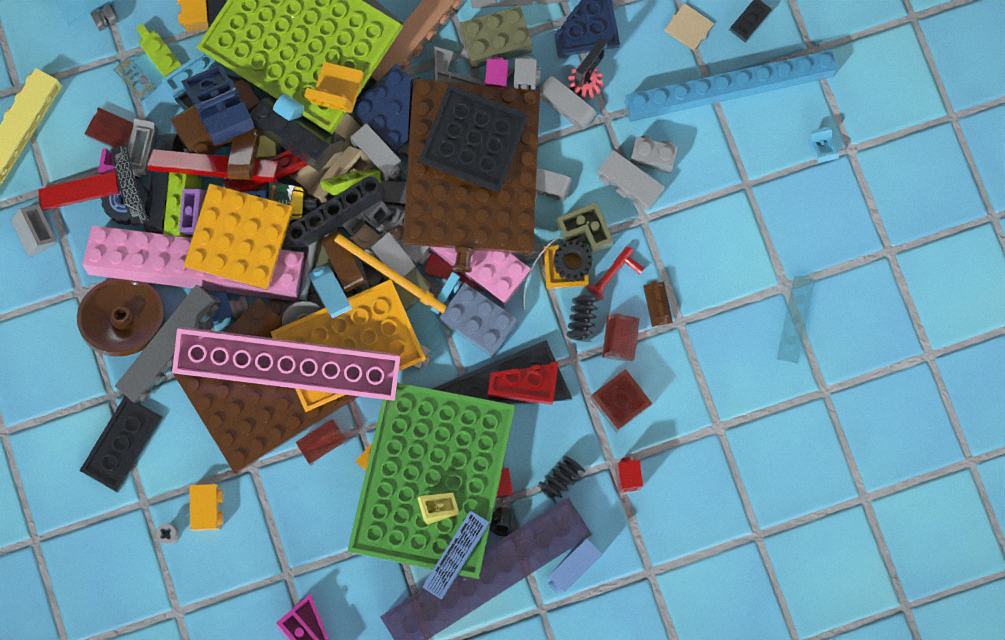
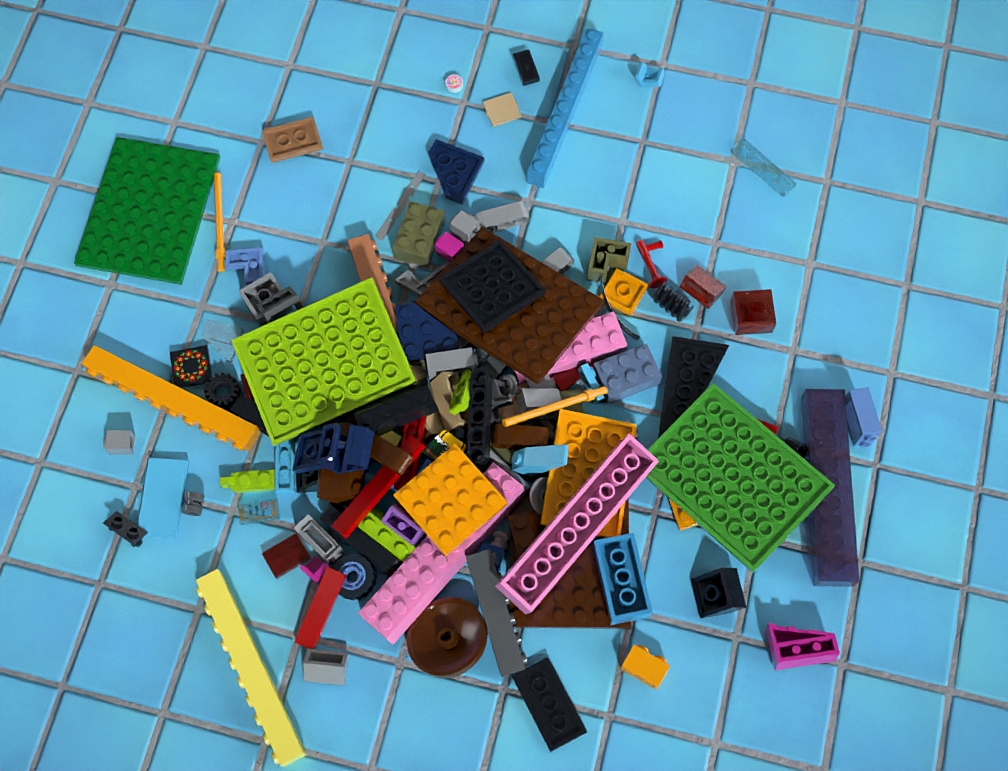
camera: 55 degrees left, 10 degrees down
(128, 185) = (345, 563): black sticker -> none
(174, 533) = (652, 705): light grey bush -> none
(267, 436) = (622, 579): none -> dark azure brick
(288, 107) = (376, 397): medium azure brick -> none
(316, 533) = (718, 592): none -> black slope
(321, 441) = (649, 544): clear red panel -> none
(336, 87) = (386, 352): light orange bracket -> none
(438, 507) = (762, 482): light yellow slope -> none
(456, 555) = (808, 490): medium blue tile -> none
(463, 259) = (578, 350): reddish brown bush -> none
(527, 384) = (700, 367): red wing -> none
(560, 478) = (784, 389): black piece -> none
(568, 248) = (625, 292): black tyre -> none
(587, 89) = (495, 195): coral gear -> none
(590, 62) = (490, 176): black tile -> none
(629, 475) = (814, 338): red brick -> none
(630, 181) = (590, 210): light grey brick -> none
(654, 154) = (581, 183): light grey brick -> none
(657, 303) = (693, 248): reddish brown hinge -> none

